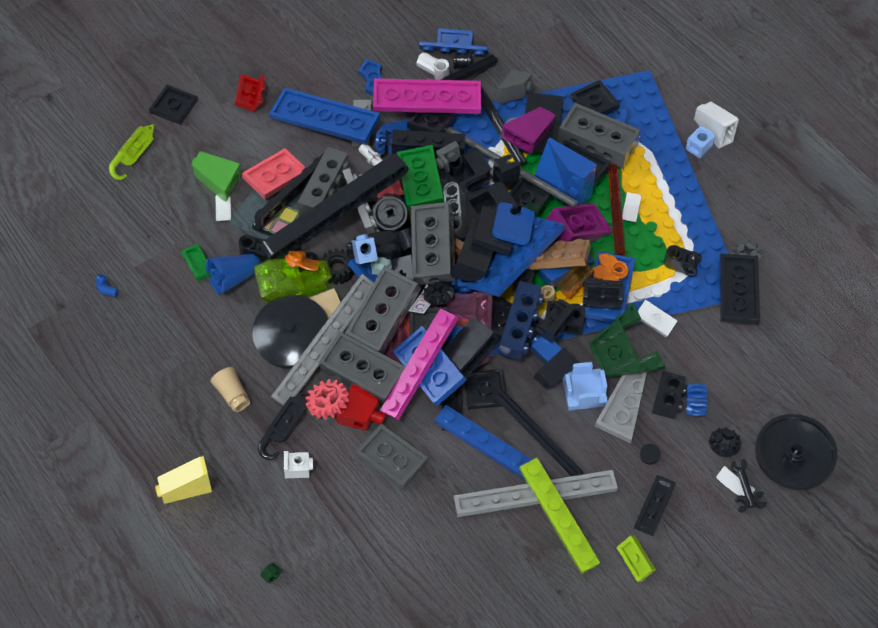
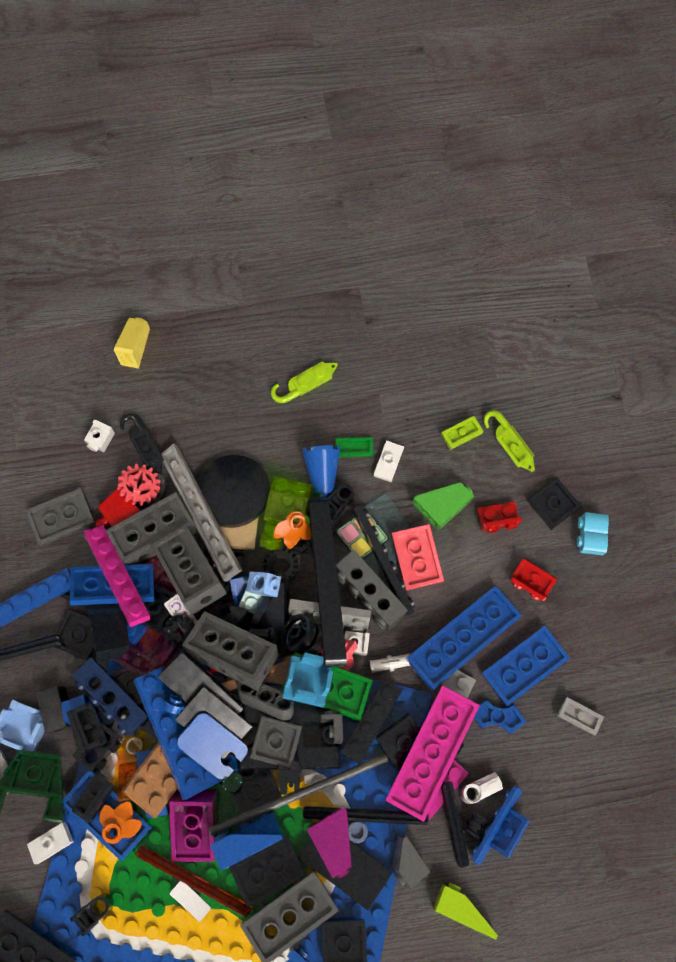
camera: 115 degrees right, 15 degrees up
(103, 287) = (367, 359): blue arm -> none
(142, 187) = (462, 433): none -> lime plate
(151, 326) = (306, 381): none -> lime plate
(187, 67) = (593, 533): none -> medium azure brick
(197, 231) = (388, 461): none -> white plate
(207, 134) = (498, 516): none -> red bracket
(223, 209) = (402, 495): white sticker -> none
(231, 389) = (200, 415): tan plant -> none
(270, 572) = (17, 373): dark green axle -> none
(323, 73) = (525, 666): none -> blue plate
(342, 28) = (580, 716): none -> light grey plate
(381, 141) = (404, 678): blue gear -> none
(424, 180) = (307, 680): none -> dark azure panel
(483, 189) = (276, 742): none -> dark grey tile
(499, 255) = (174, 704): none -> blue plate
(524, 48) = (459, 908): none -> lime slope

